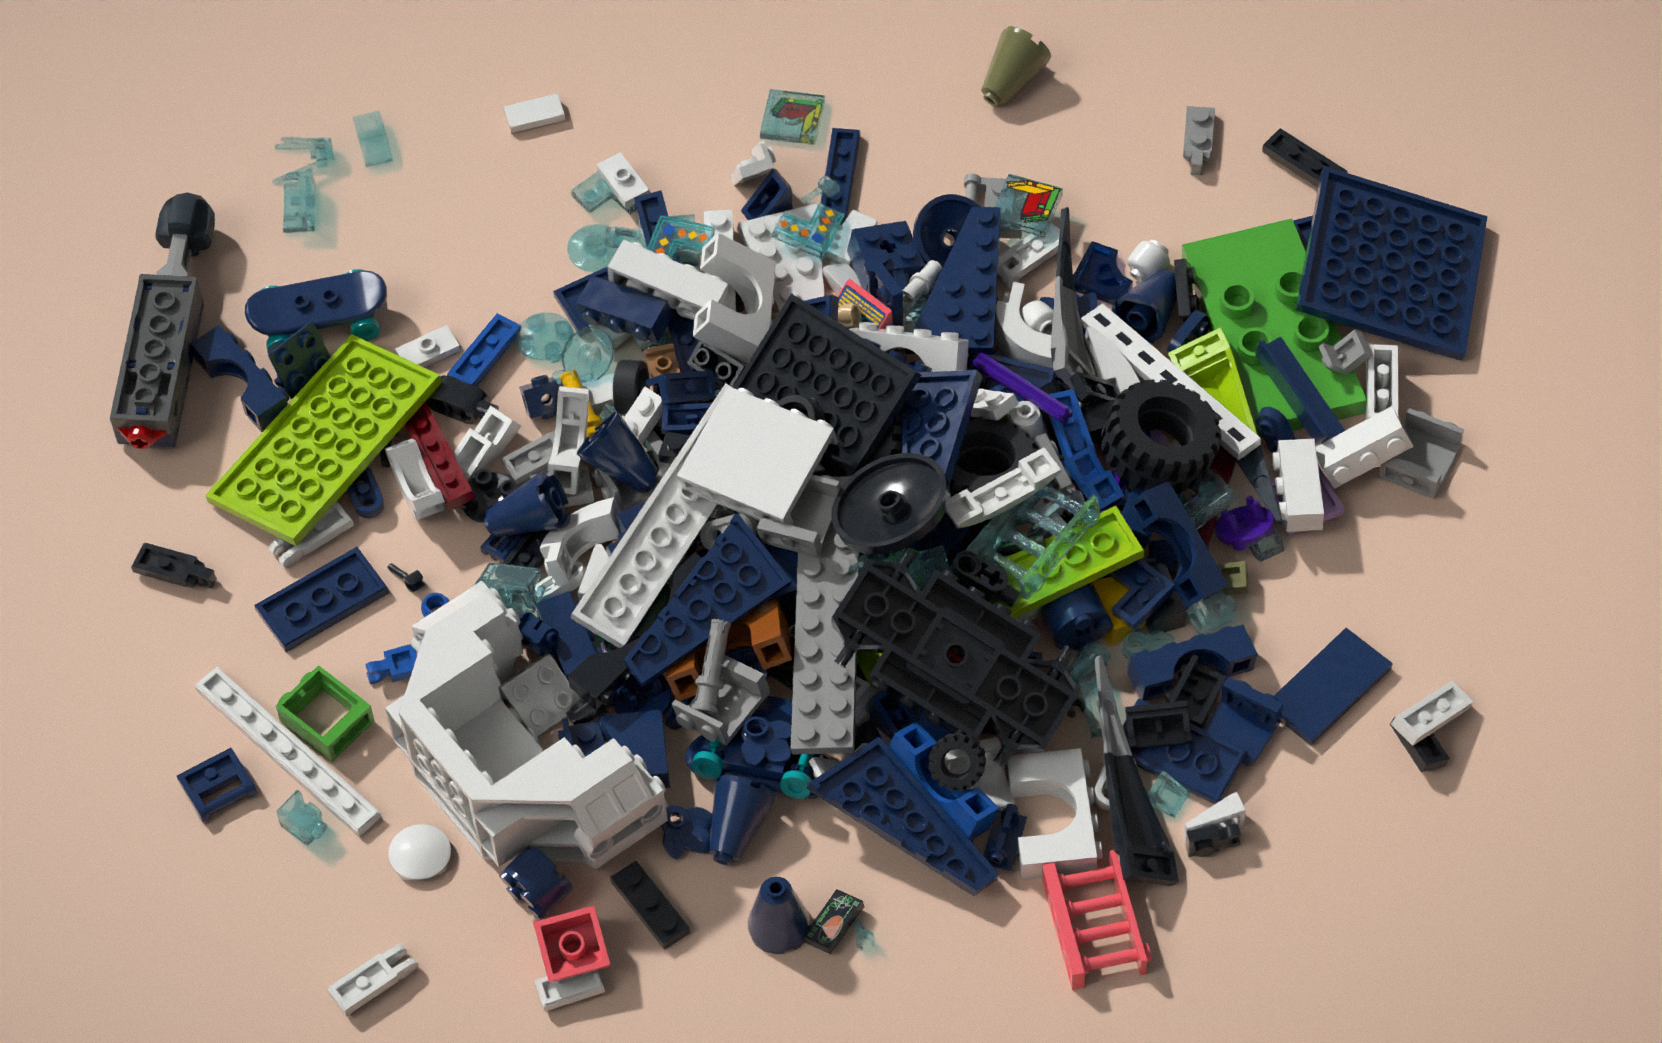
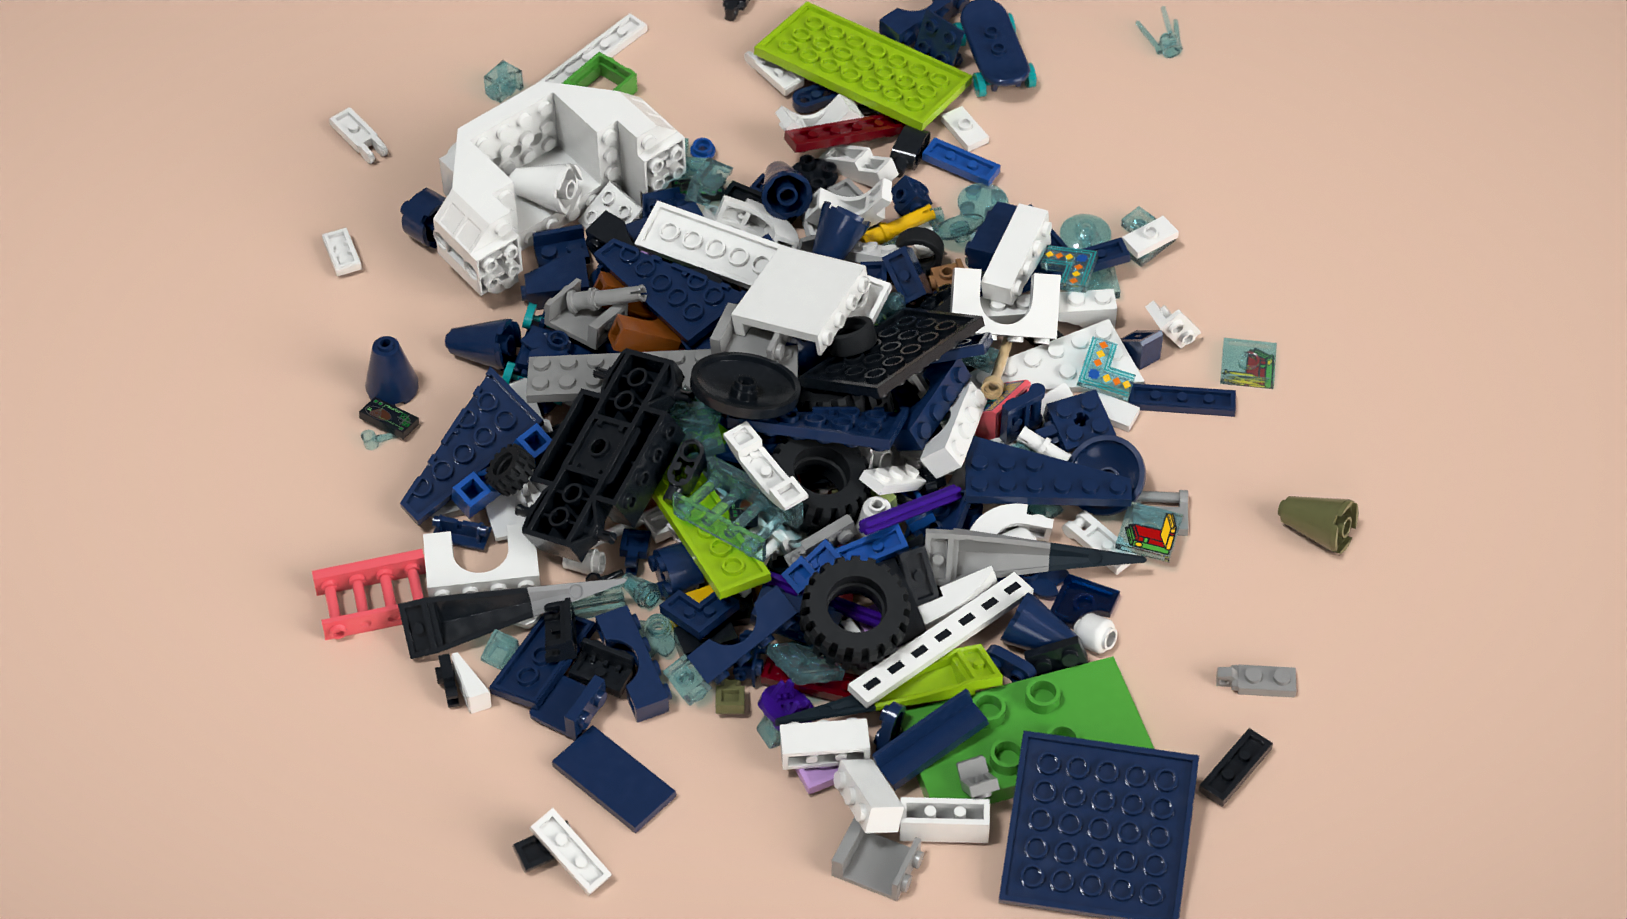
camera: 85 degrees right, 5 degrees down
(213, 776) = (543, 27): dark blue plate -> none
(299, 202) = (1112, 38): clear light blue hinge -> none
(321, 599) = (713, 82): dark blue tile -> none
(372, 138) = (1190, 73): clear light blue slope -> none
(412, 581) = (731, 133): black hand -> none
(517, 737) = (550, 186): none -> white cone
(534, 113) = (1229, 182): white tile -> none
(571, 944) = (370, 244): coral slope -> none
(650, 905) = (415, 300): black plate -> none
(689, 834) = (476, 311): dark blue plate -> none
(825, 186) = (1157, 383): clear light blue hand -> none

